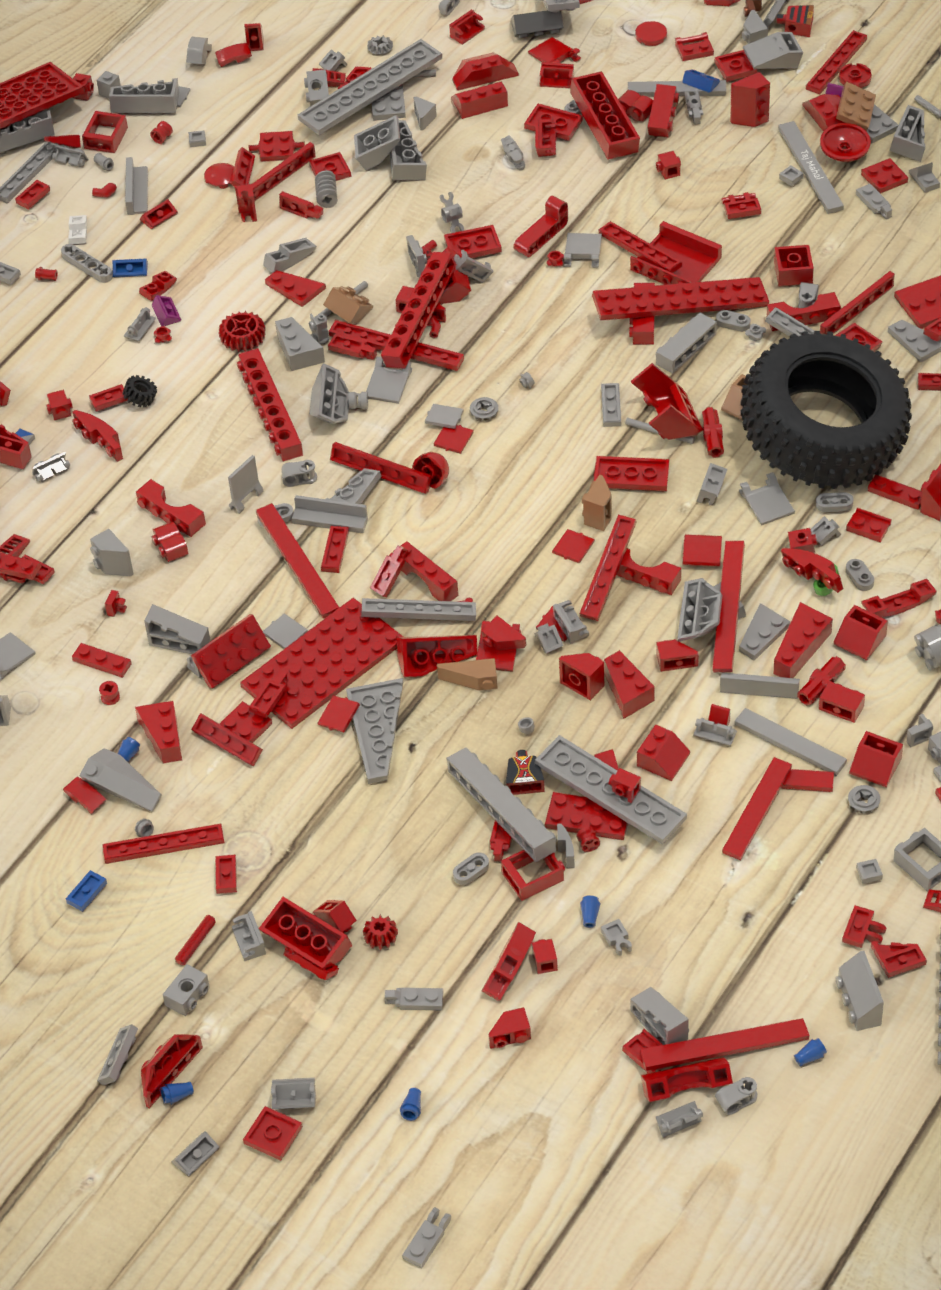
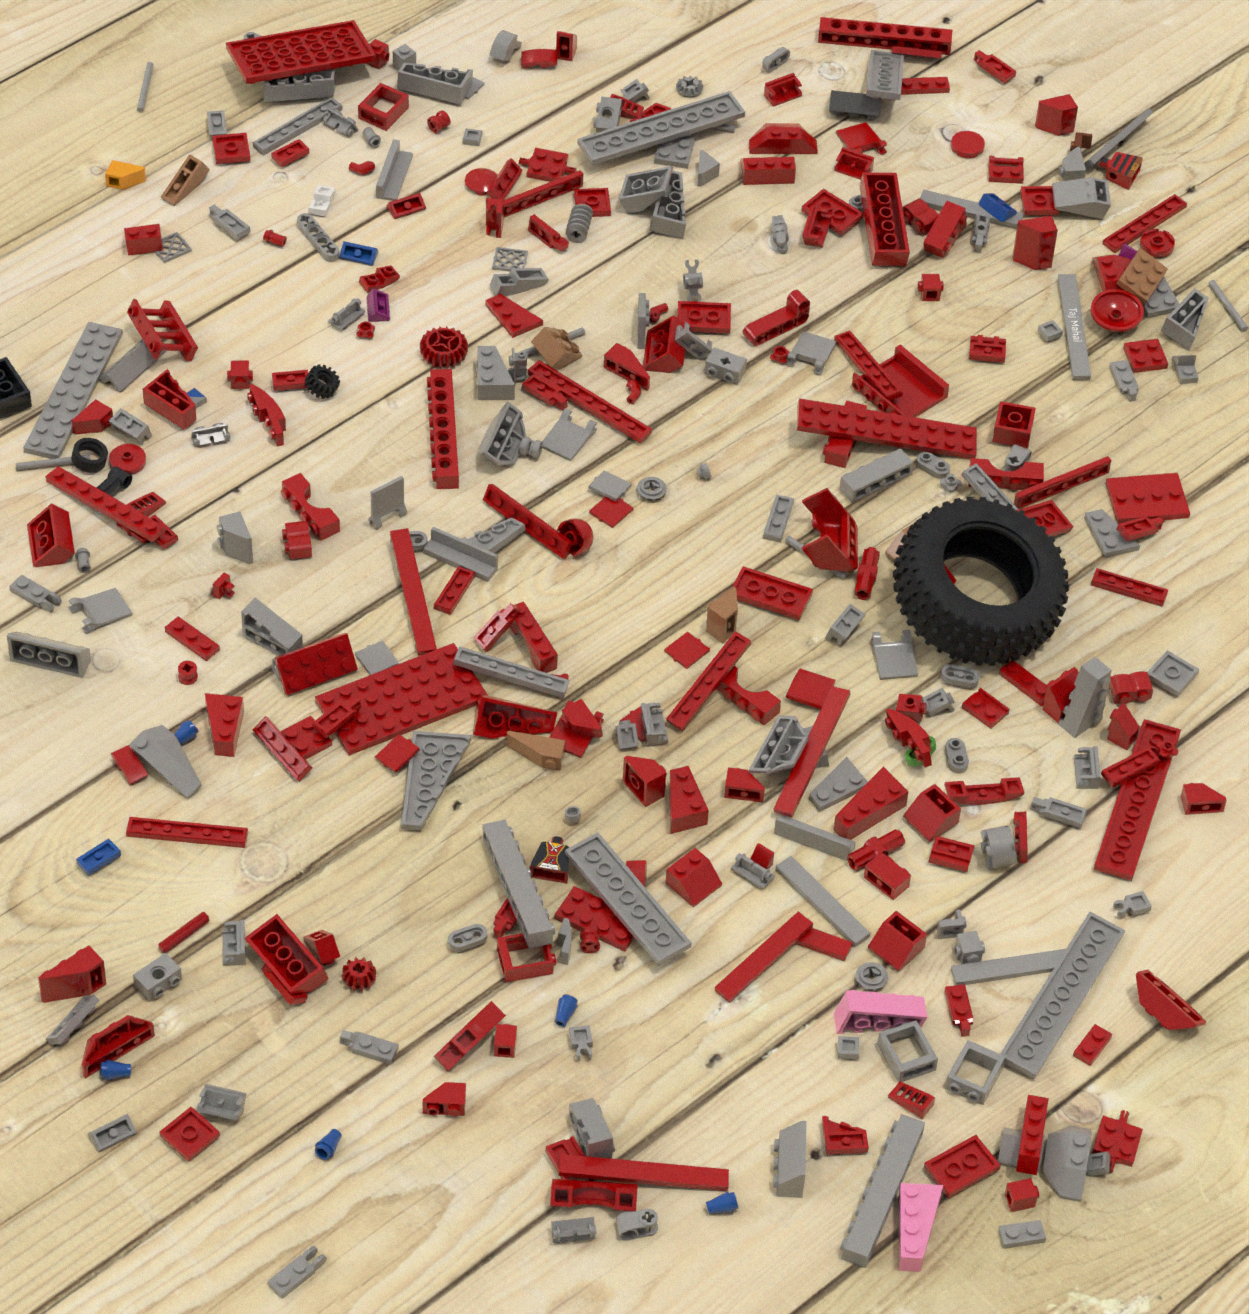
camera: 10 degrees right, 0 degrees up
(67, 140) = (343, 106): red slope -> none
(105, 1012) = (73, 977): none -> red slope
(144, 828) = (173, 812): light grey plate -> none
(226, 874) = (234, 877): red plate -> none
(270, 230) = (509, 251): none -> light grey window
(297, 474) = (445, 504): light grey piece -> none
(418, 310) = (621, 372): red brick -> none
(509, 281) = (725, 366): none -> light grey brick
(625, 784) = (641, 897): red brick -> none
(859, 925) = (816, 1098): red hinge -> none
(883, 829) = (878, 1011): none -> bright pink wedge
(892, 665) = (951, 853): none -> red plate

